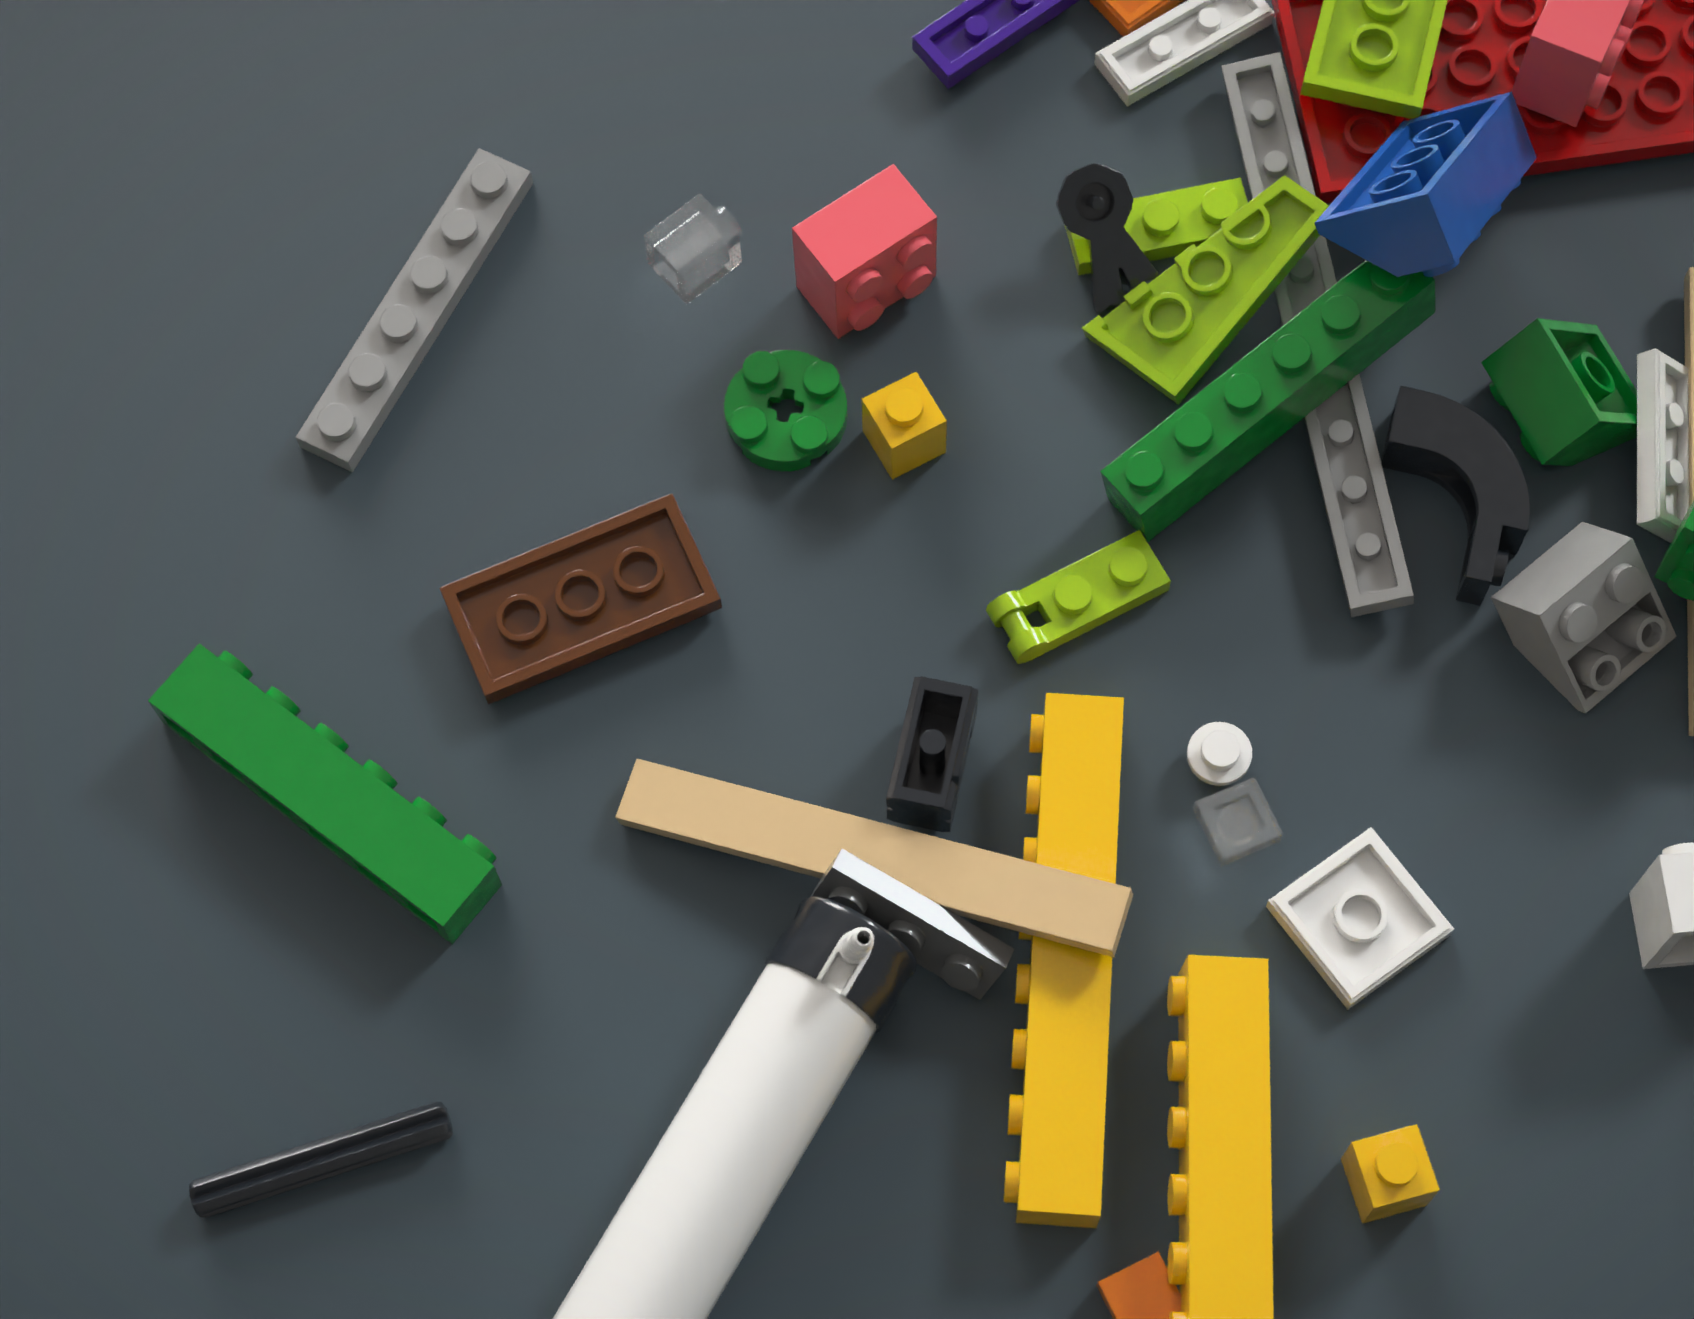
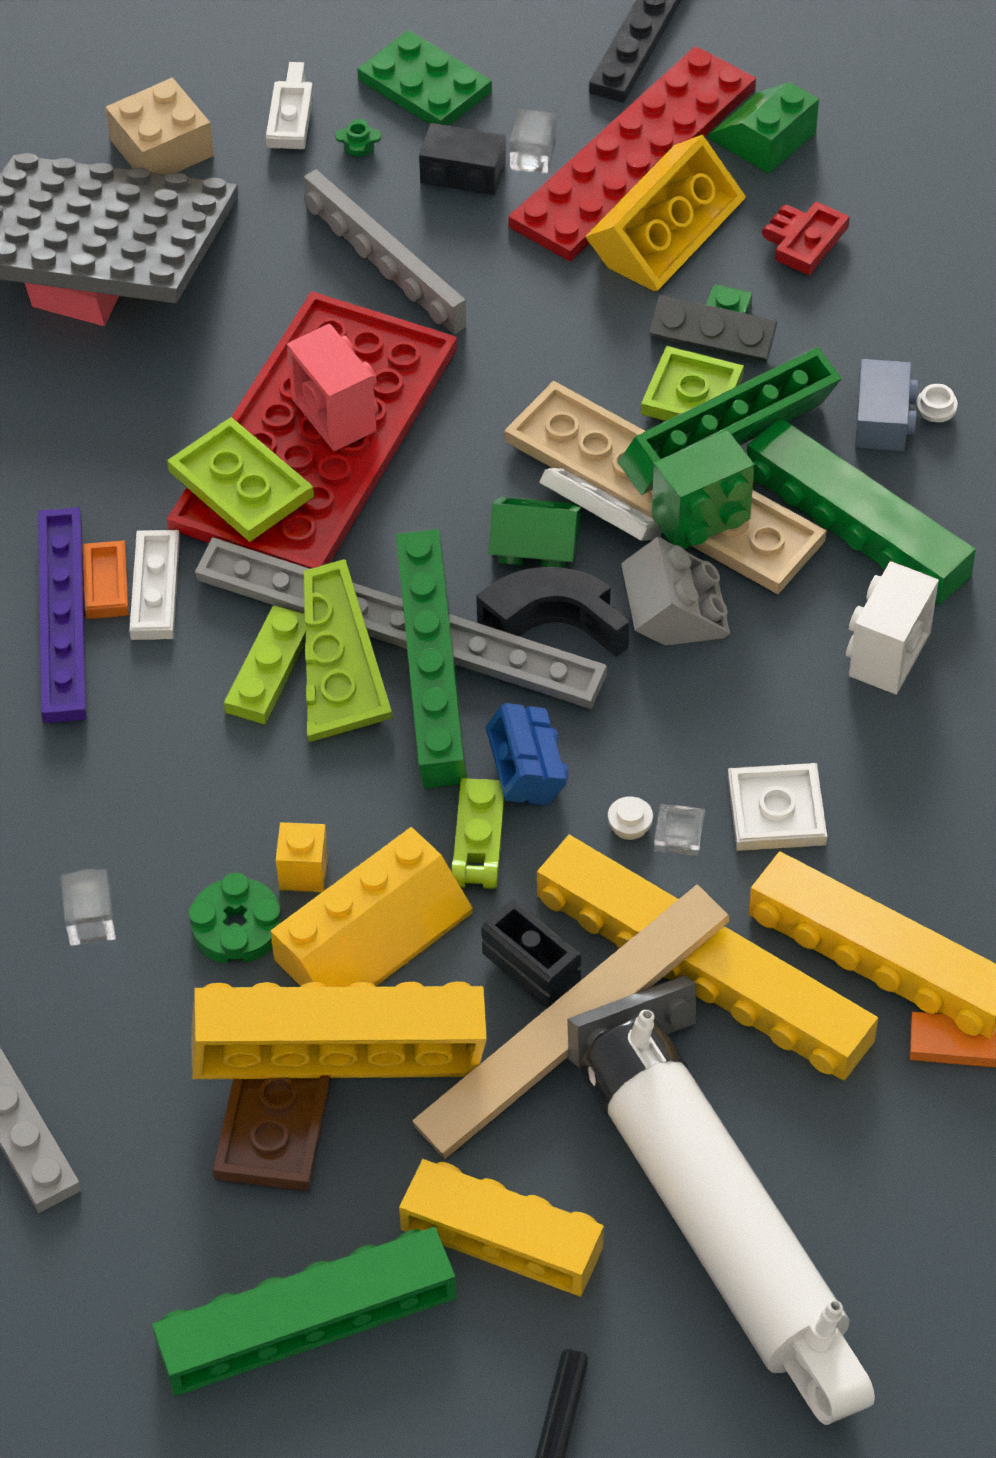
camera: 60 degrees left, 15 degrees down
(555, 940) = (503, 1226): none -> yellow brick
(658, 594) = (337, 1031): none -> yellow brick
(866, 252) = (177, 809): coral brick -> none
(868, 554) = (373, 917): none -> yellow slope
(1096, 206) = (243, 678): black piece -> none
(1217, 583) = (526, 754): none -> blue brick
(1389, 1173) = (941, 869): yellow brick -> none
(1432, 187) = (376, 500): blue slope -> none

